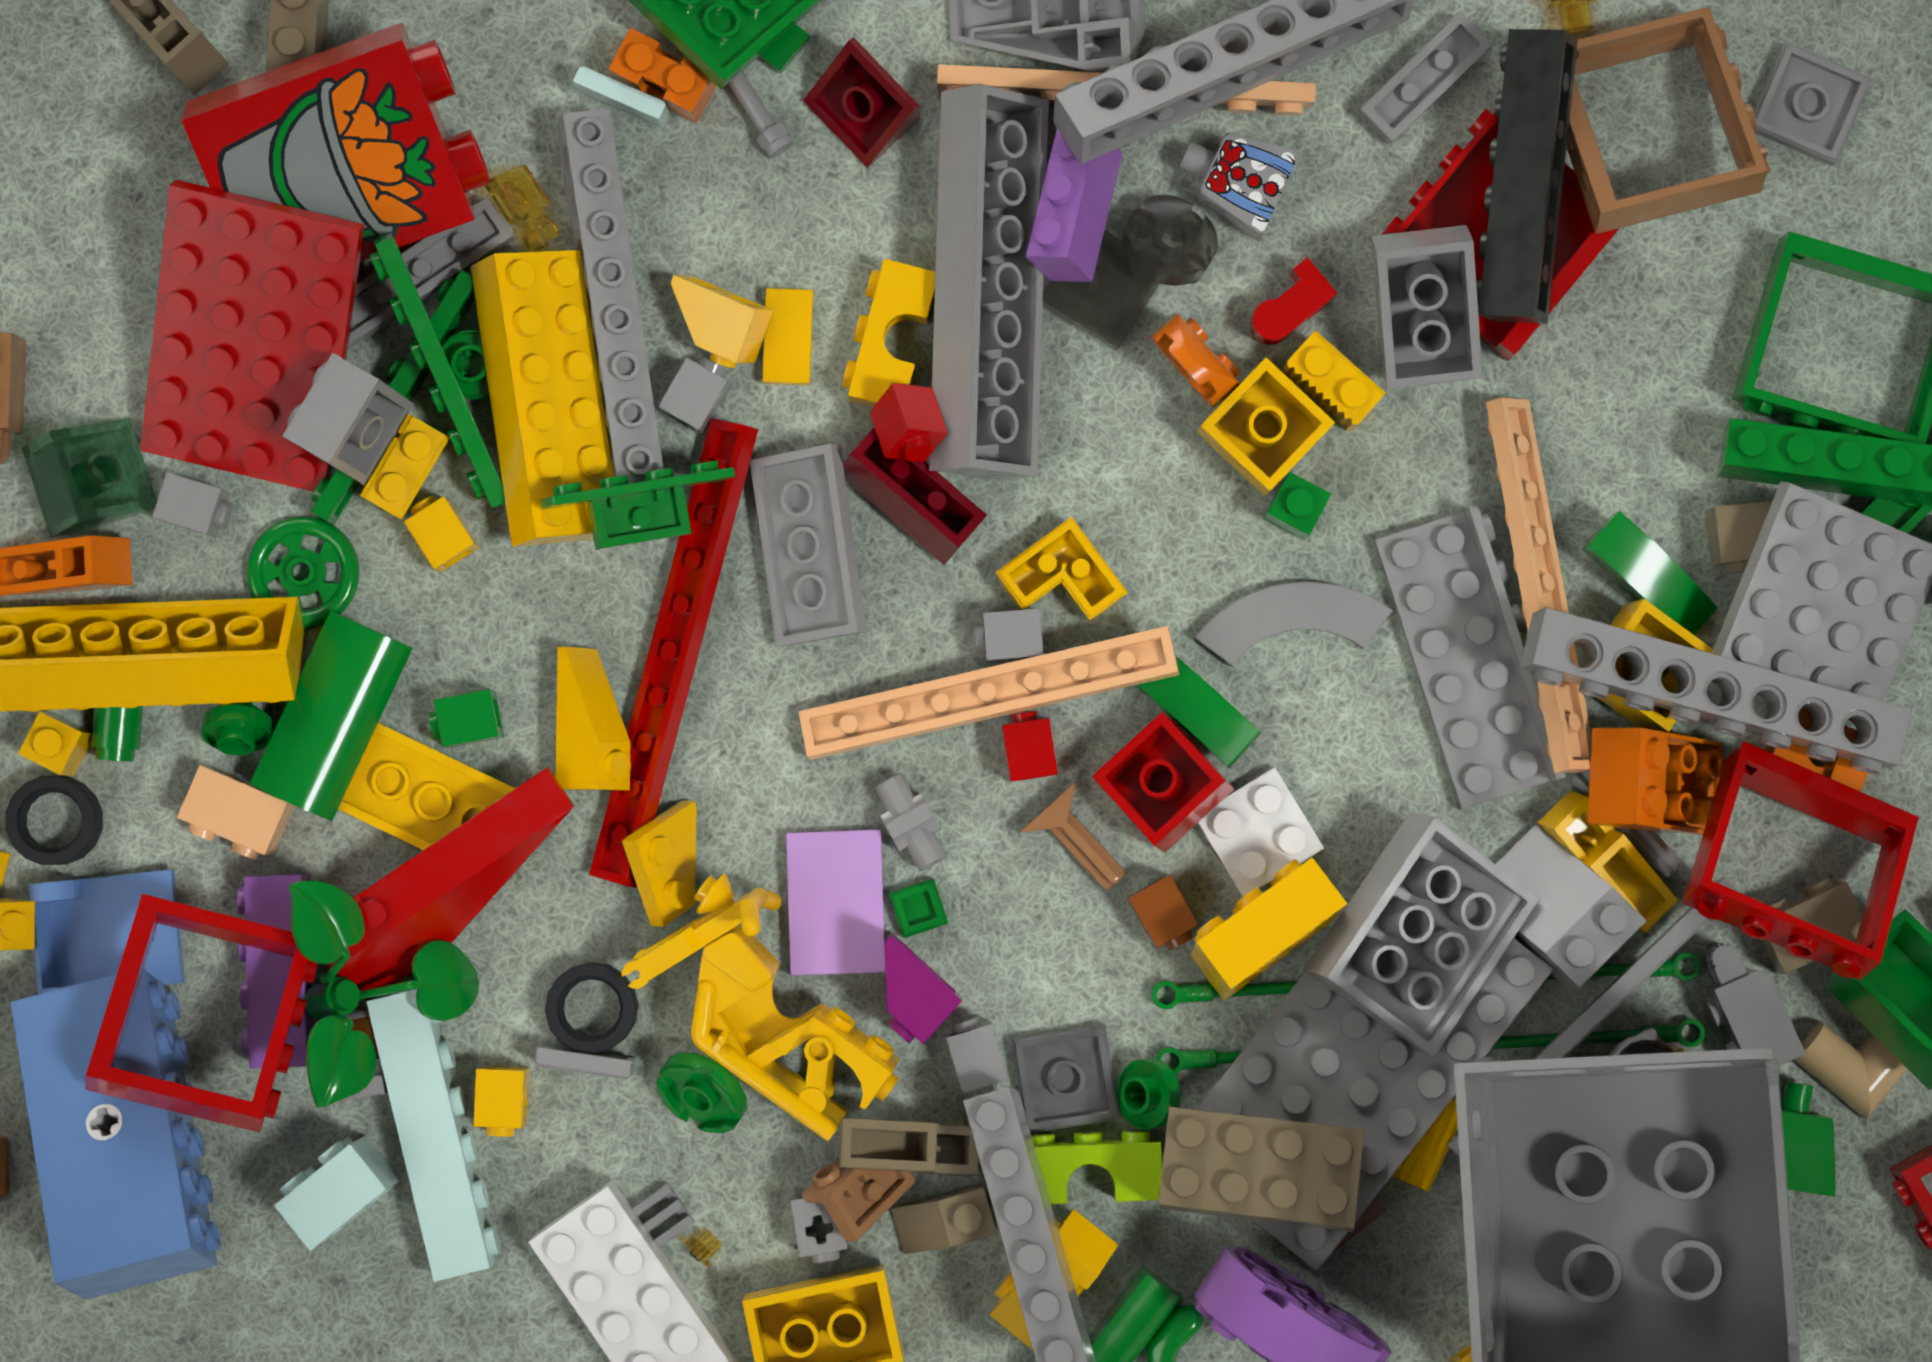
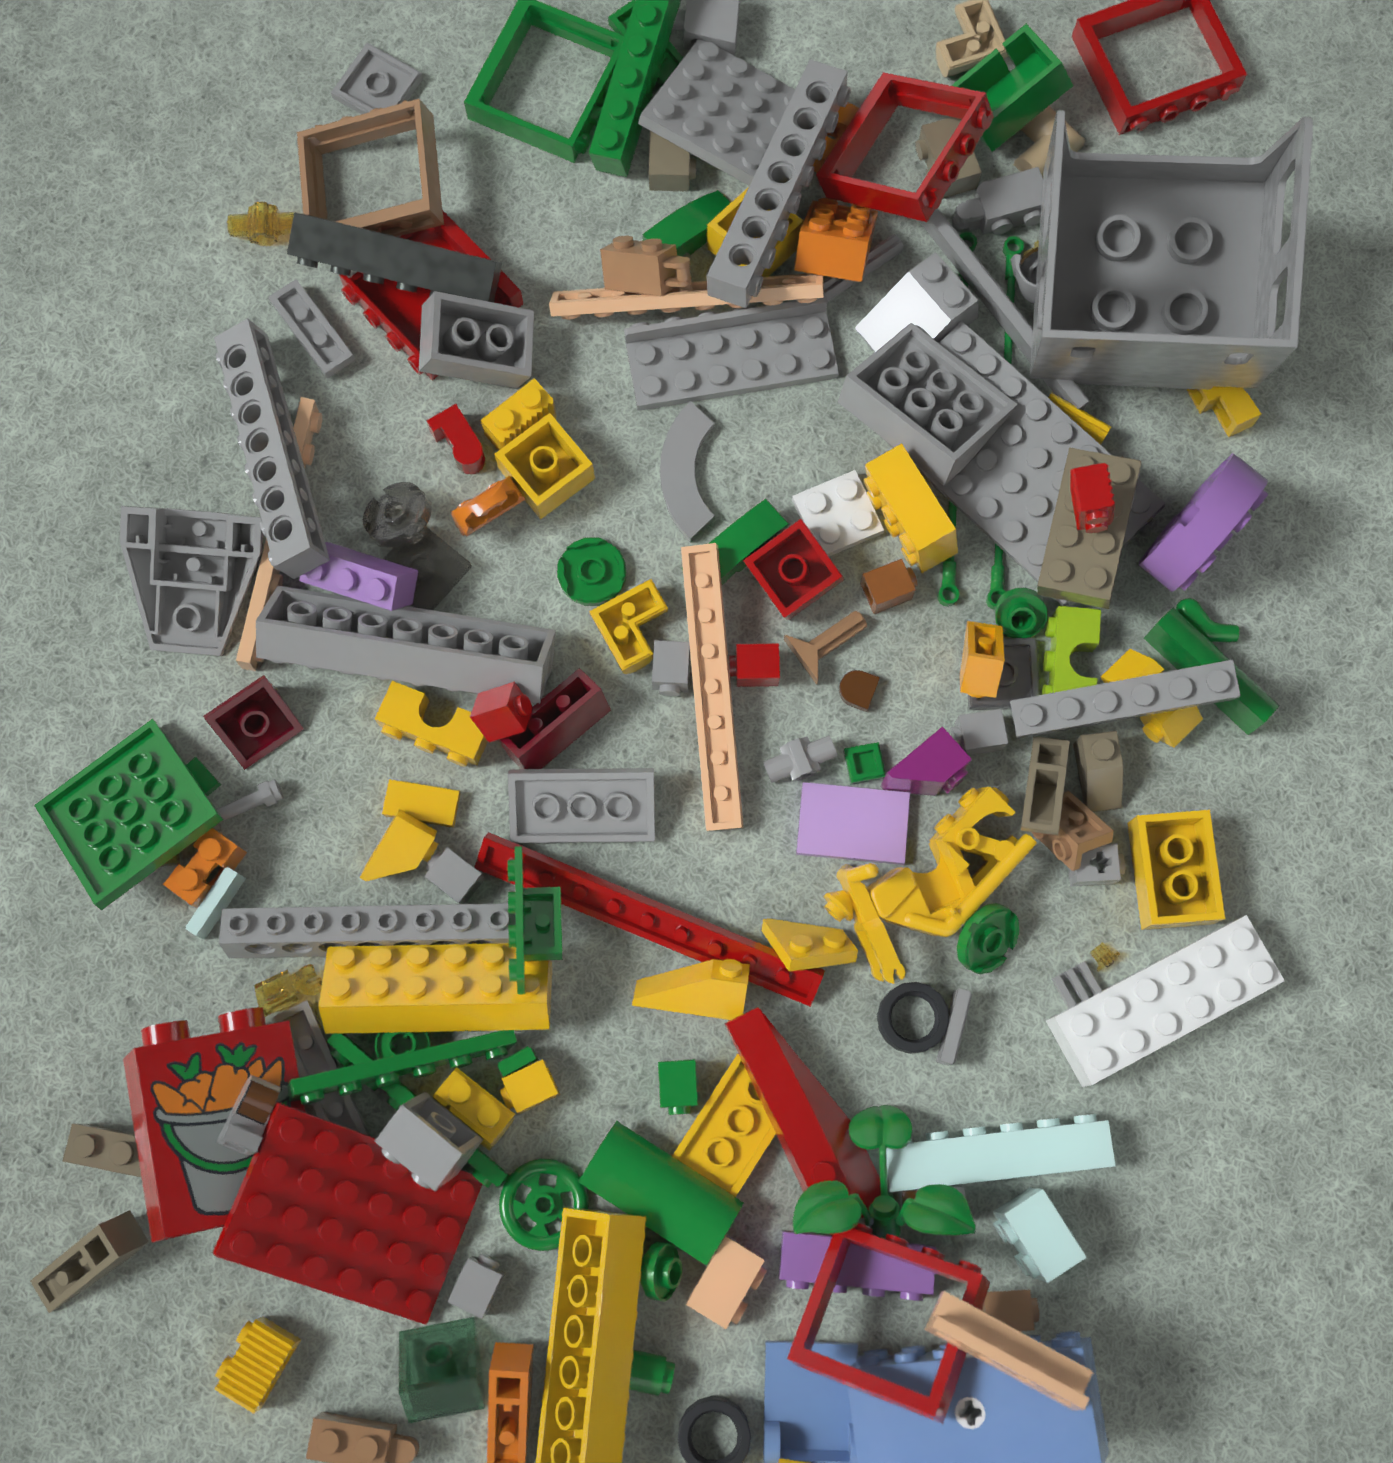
camera: 80 degrees left, 10 degrees down
(56, 743) = (652, 1425): yellow brick -> none
(68, 252) = (256, 1364): none -> yellow brick
(172, 1158) = (1010, 1351): none -> light nougat fence
(237, 1161) = (1013, 1308): none -> medium nougat brick
(344, 194) = (249, 1116): none -> leg
(470, 513) = (517, 1061): none -> green tile
(501, 1099) = (976, 1096): yellow brick -> none
(1018, 888) = (858, 689): none -> reddish brown tile
(1074, 1047) = (982, 660): none -> light orange slope
(1124, 526) = (598, 580): none -> green tile
(1241, 179) = (362, 461): torso -> none
(1278, 1162) = (1092, 497): none -> red brick
(1297, 506) = (607, 453): green brick -> none
(1569, 520) = (643, 266): none -> medium nougat brick
(1609, 856) = (859, 298): yellow slope -> none

